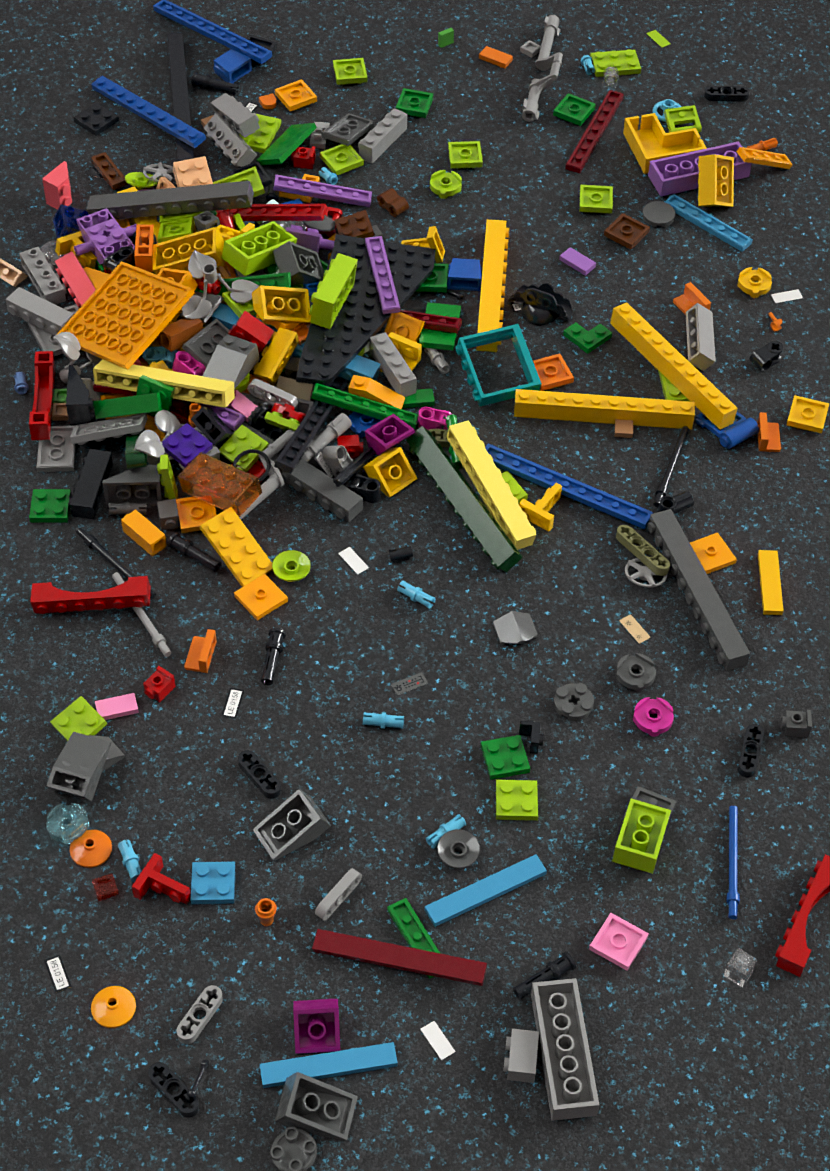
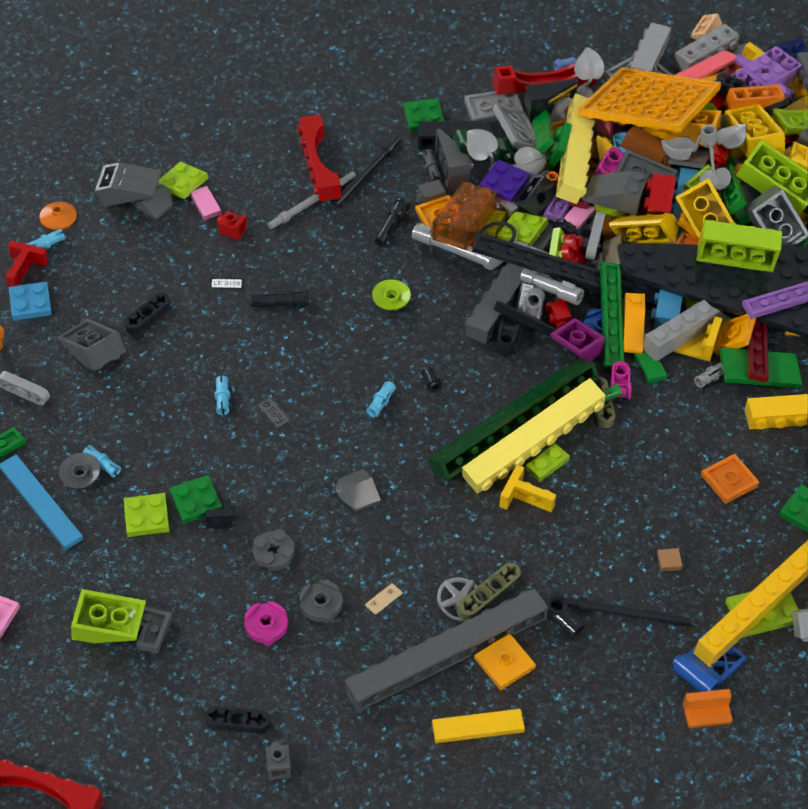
camera: 80 degrees right, 0 degrees up
(71, 831) = (77, 192): clear light blue plate -> none
(105, 887) = (19, 231): clear red tile -> none
(143, 532) = (405, 180): light orange brick -> none
(167, 477) = (459, 171): lime plate -> none
(201, 652) = (276, 250): orange panel -> none
(236, 546) = (398, 246): yellow plate -> none
(261, 596) = (352, 281): light orange plate -> none
(353, 560) = (417, 346): white sticker -> none
(391, 471) = (535, 354): yellow slope -> none
(510, 332) = (732, 445): teal window -> none
(570, 487) = (562, 511): blue plate -> none
(603, 409) = (687, 536): yellow brick -> none
(733, 896) = (50, 713): blue bar -> none
(807, 414) = (755, 750): yellow plate -> none

